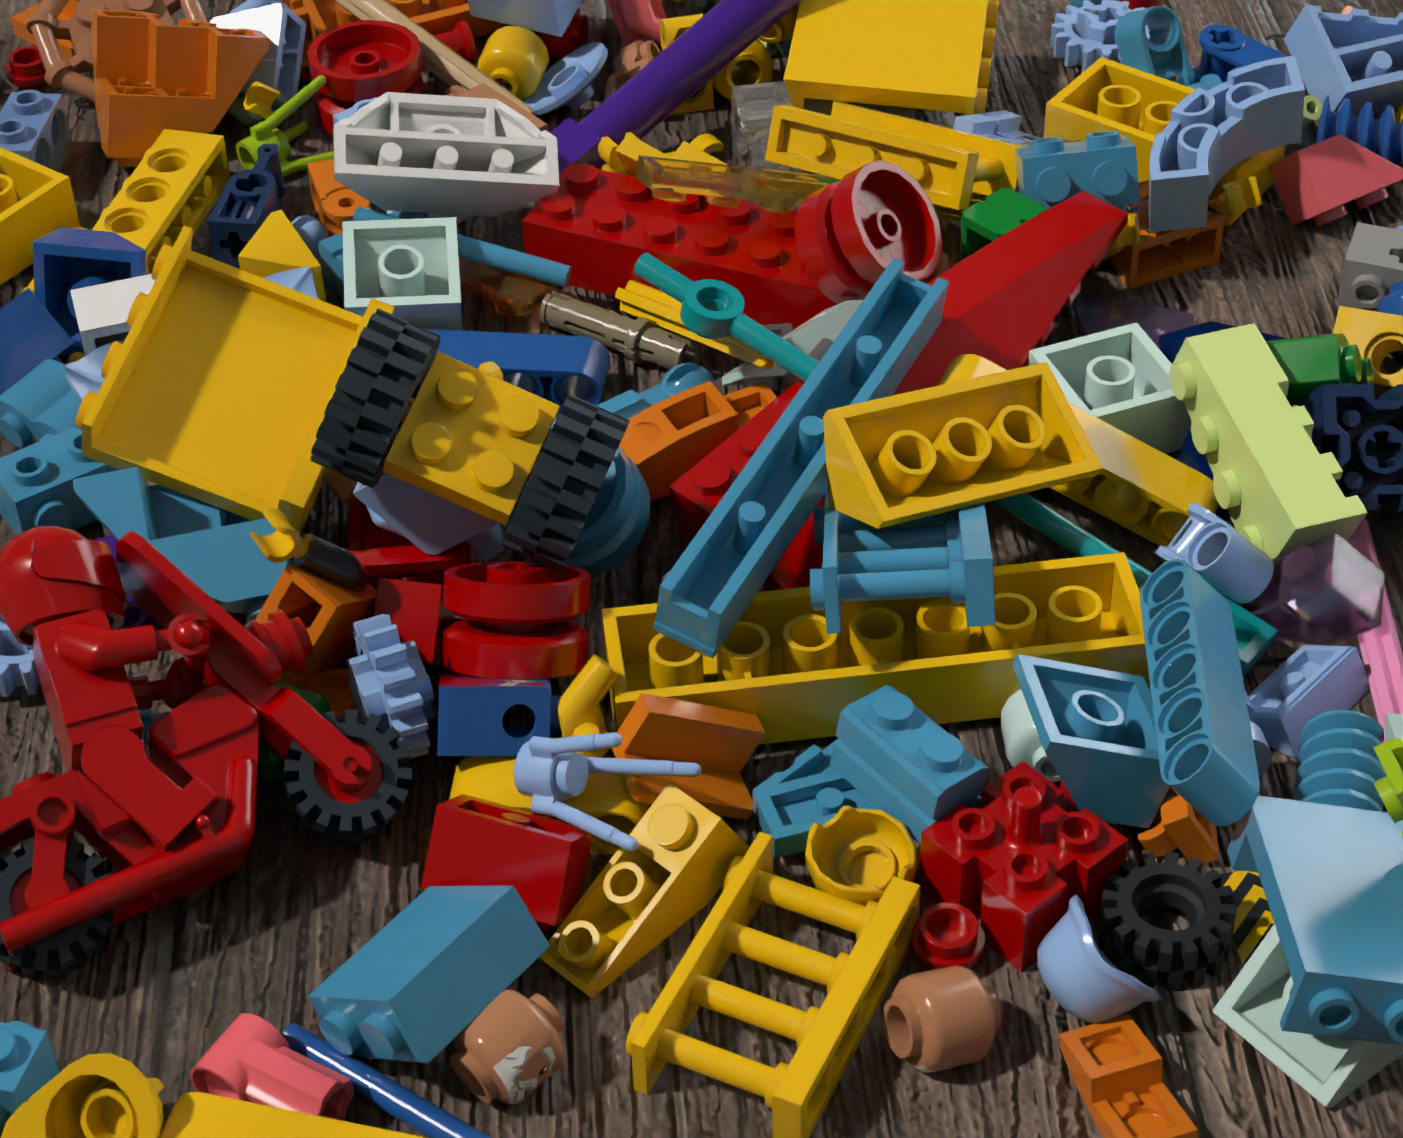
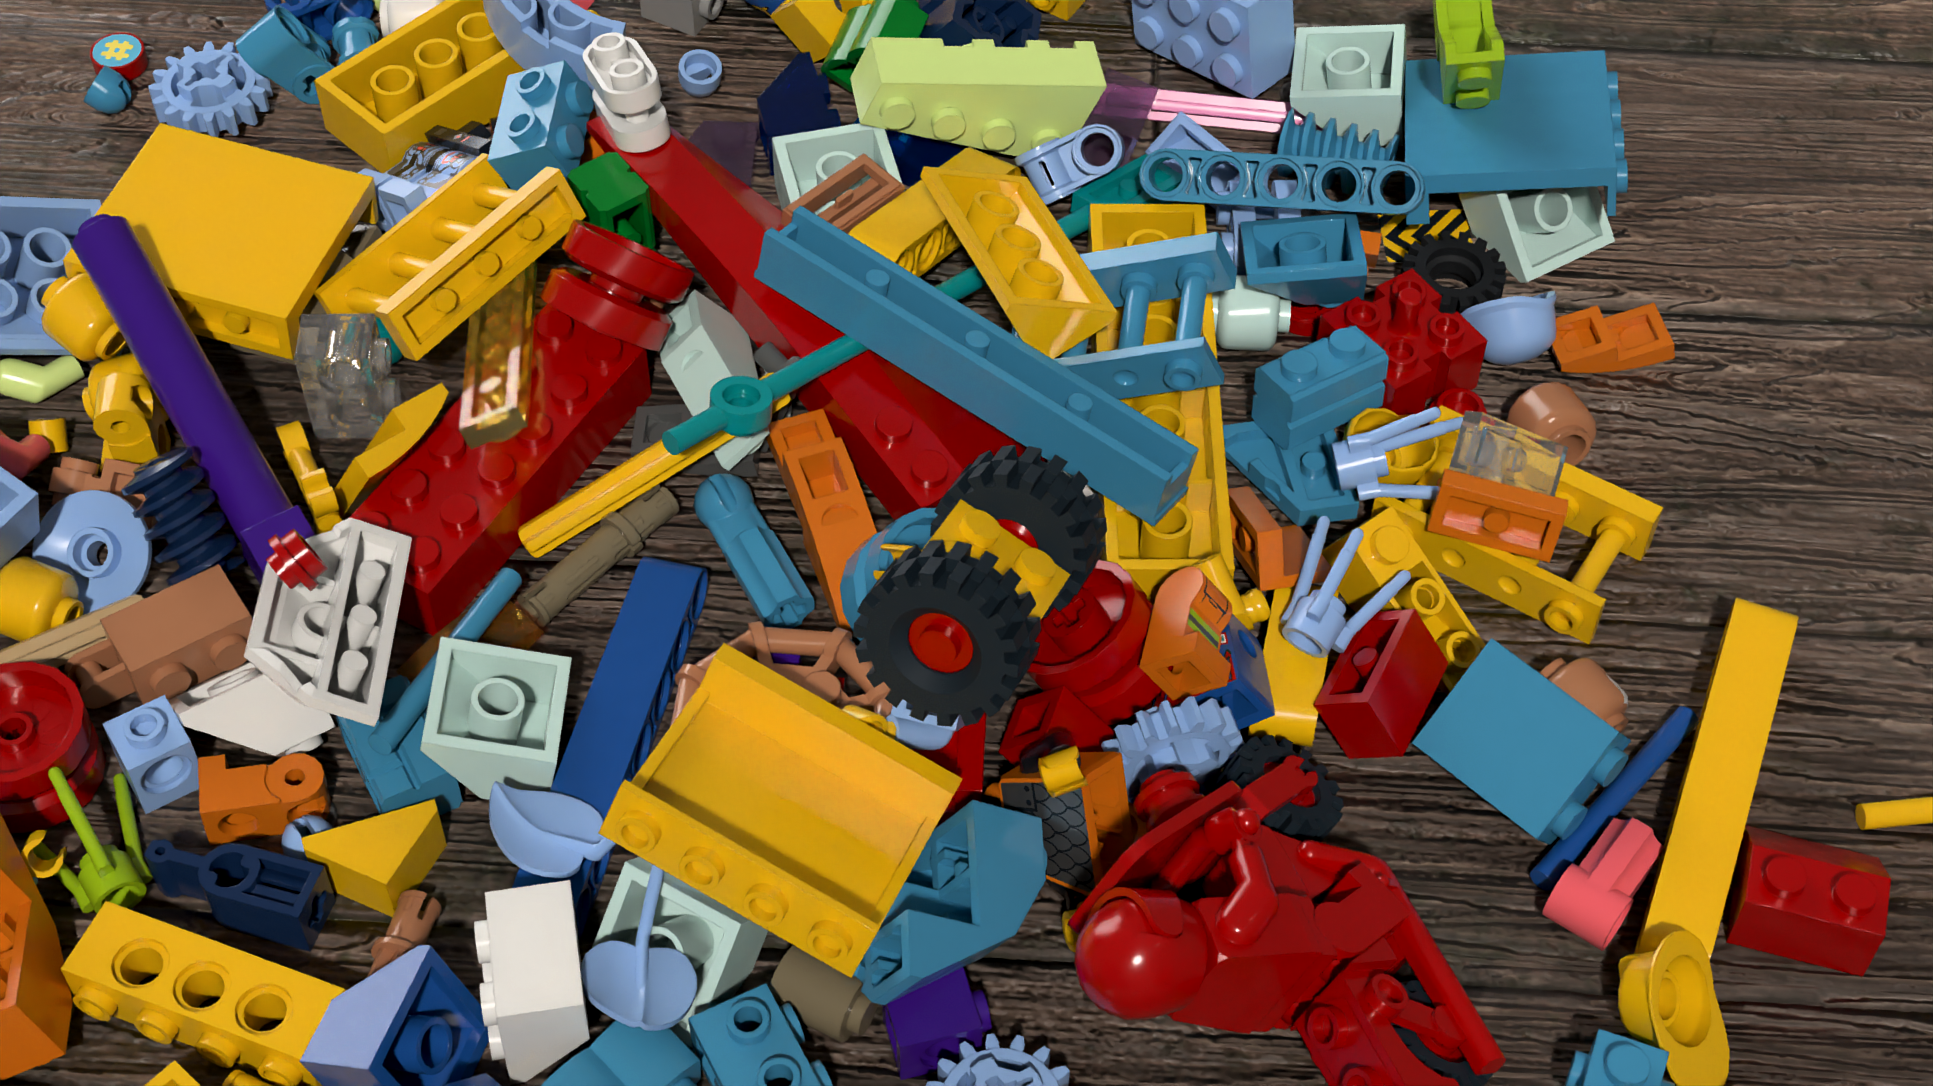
camera: 85 degrees left, 10 degrees up
(480, 100) = (295, 560): none -> red plate
(500, 652) = (1187, 635): none -> orange leg
(586, 84) = (181, 515): none -> dark blue piece
(748, 932) = (1497, 515): none -> orange panel
(795, 804) = (1363, 455): none -> light blue plant
(814, 929) = (1507, 454): none -> clear slope
(1043, 349) = (854, 204): none -> nougat tile
(1104, 185) = (626, 93): none -> white brick
(1268, 300) = (695, 68): none -> light blue hinge

